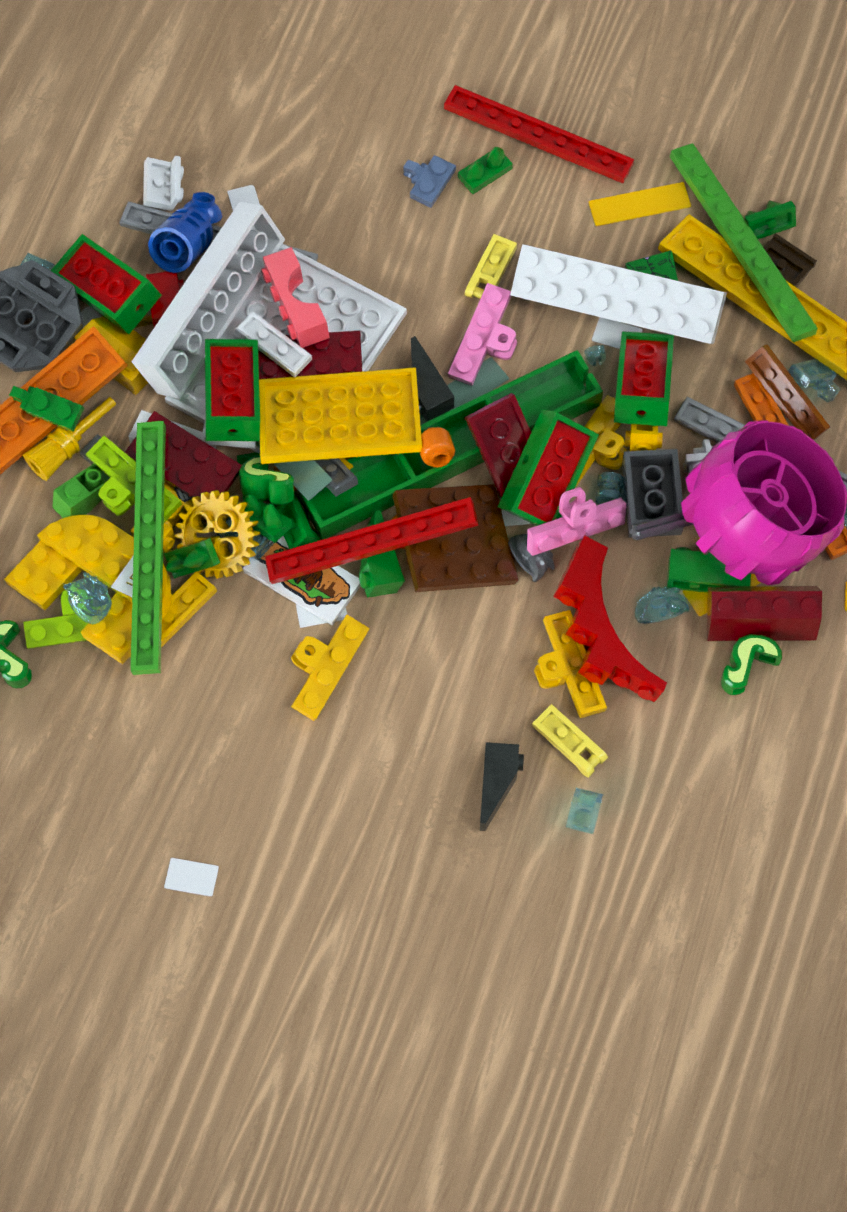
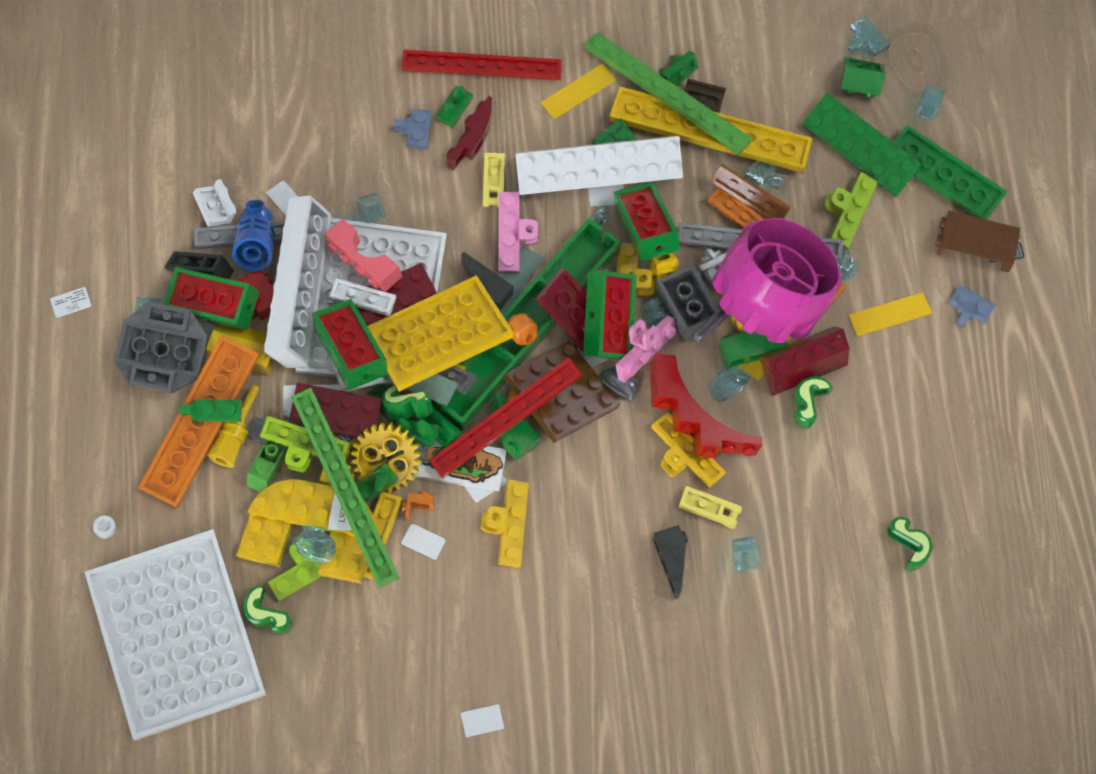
camera: 30 degrees left, 0 degrees up
(118, 243) = (200, 262): none -> pearl dark grey slope
(220, 647) = (423, 541): none -> white sticker
(235, 599) = (422, 500): none -> orange bracket
(333, 248) = (371, 208): none -> clear light blue brick
(498, 205) = (475, 134): none -> dark red slope
(800, 877) = (913, 539): none -> green animal

